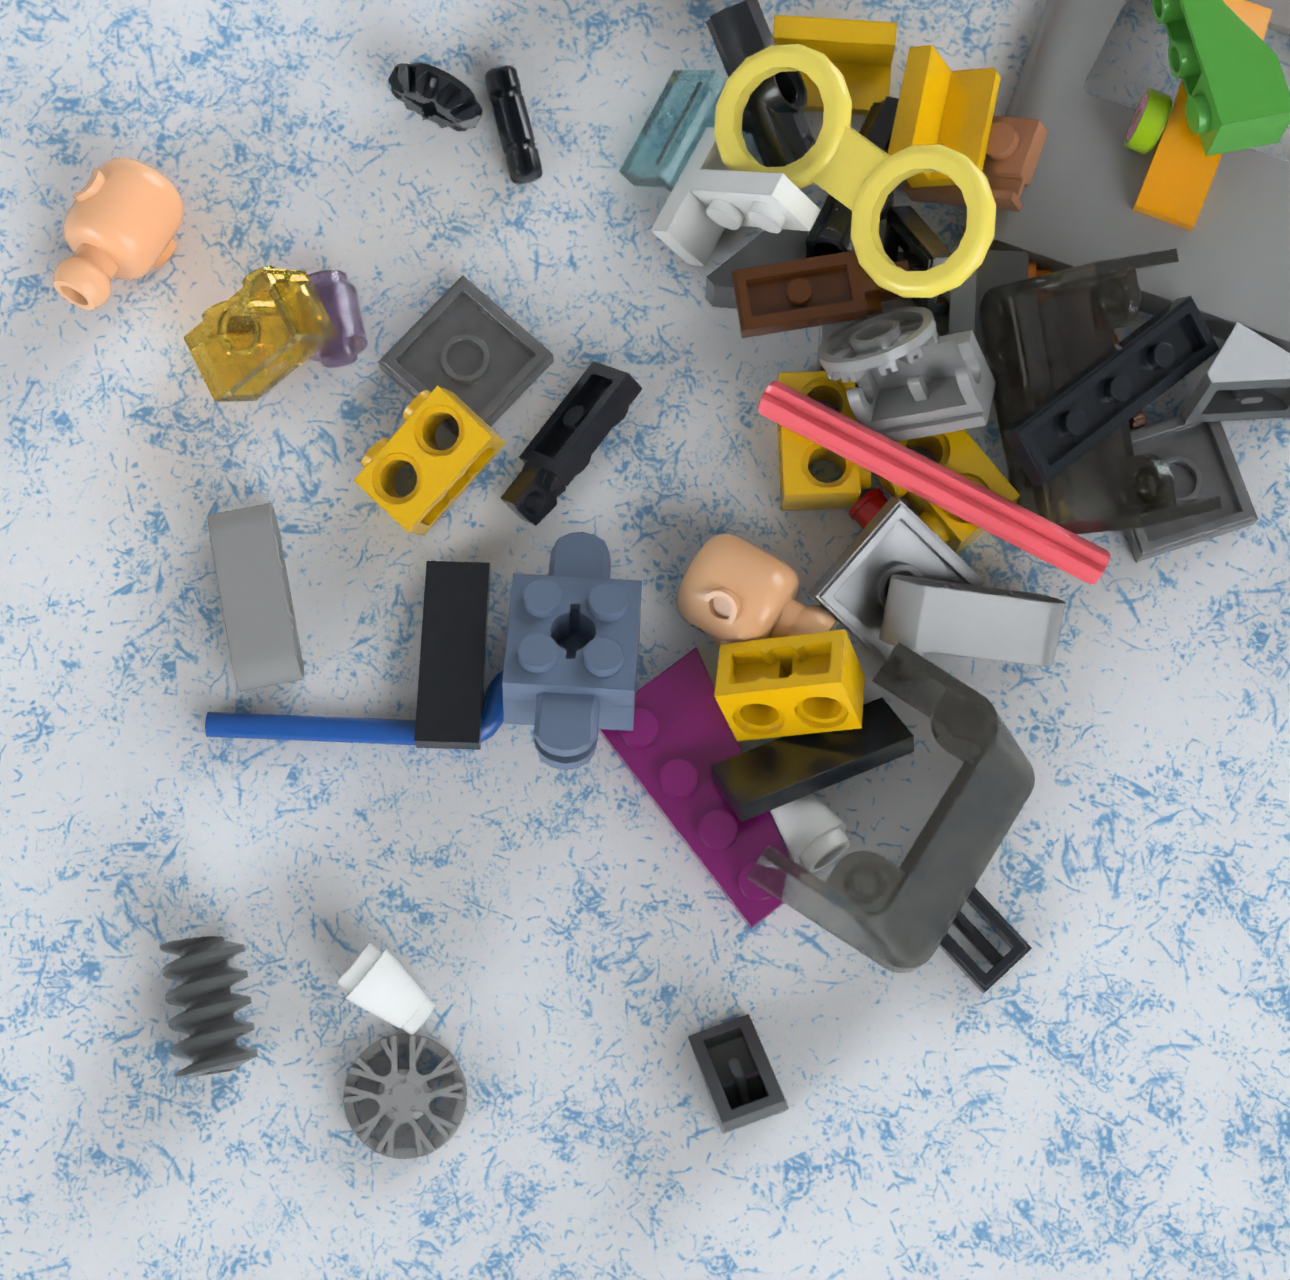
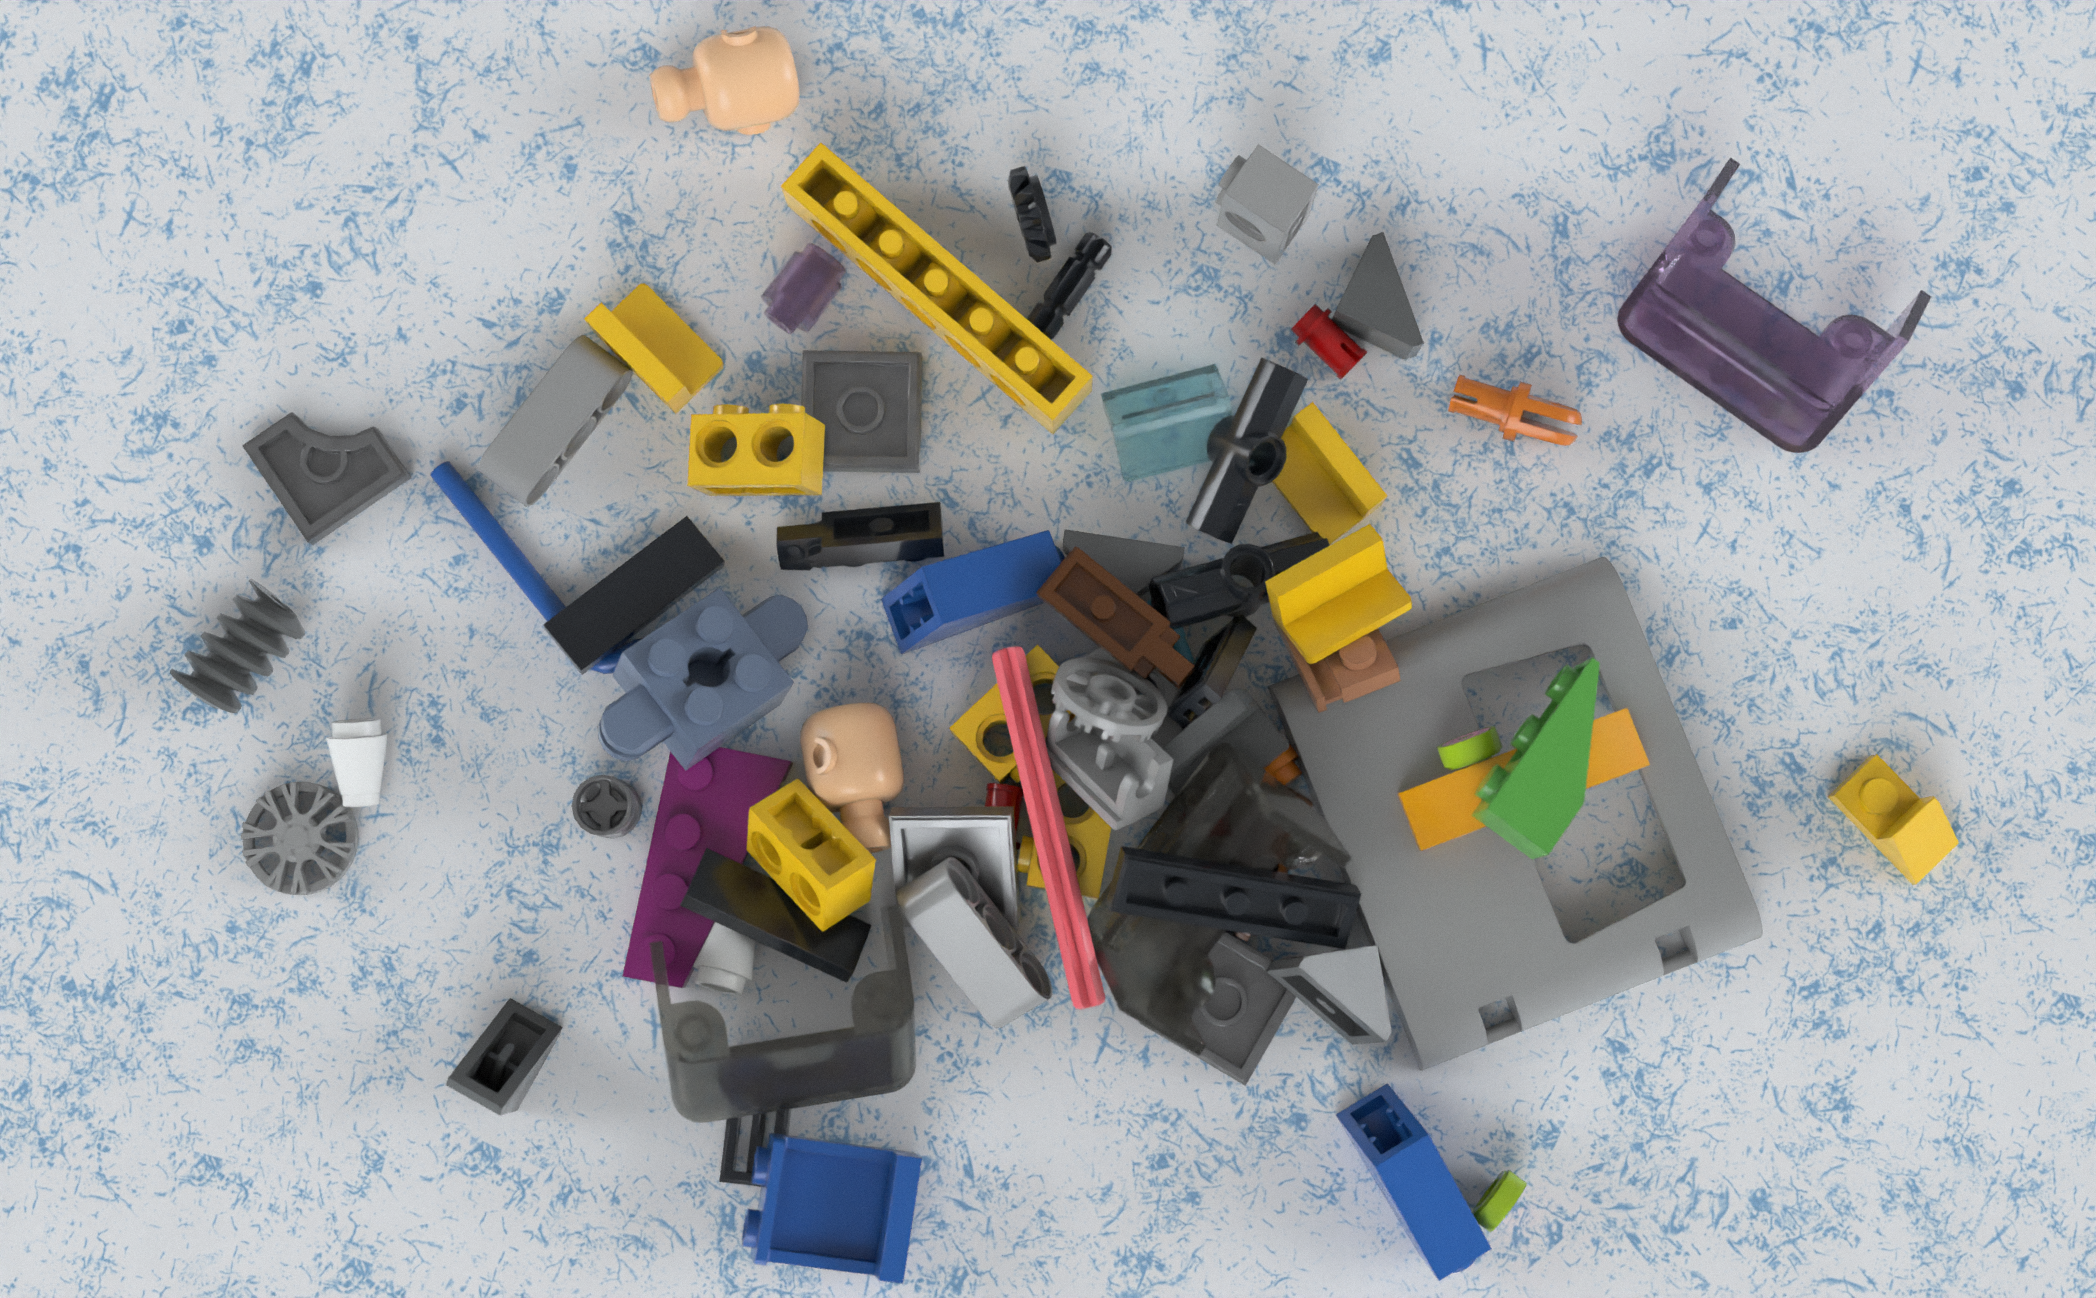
camera: 50 degrees right, 5 degrees up
(128, 822) = (323, 476): none -> flat silver tile
(259, 334) = (739, 251): clear yellow brick -> none
(270, 468) = (656, 346): none -> yellow panel
(428, 213) = (937, 288): none -> yellow brick
(604, 810) = (595, 805): none -> flat silver wheel
(687, 393) = (970, 590): none -> blue slope
(715, 198) = (1135, 481): white bracket -> none
(859, 171) = (1224, 569): light yellow bar -> none
(1087, 913) = (833, 1206): none -> blue panel

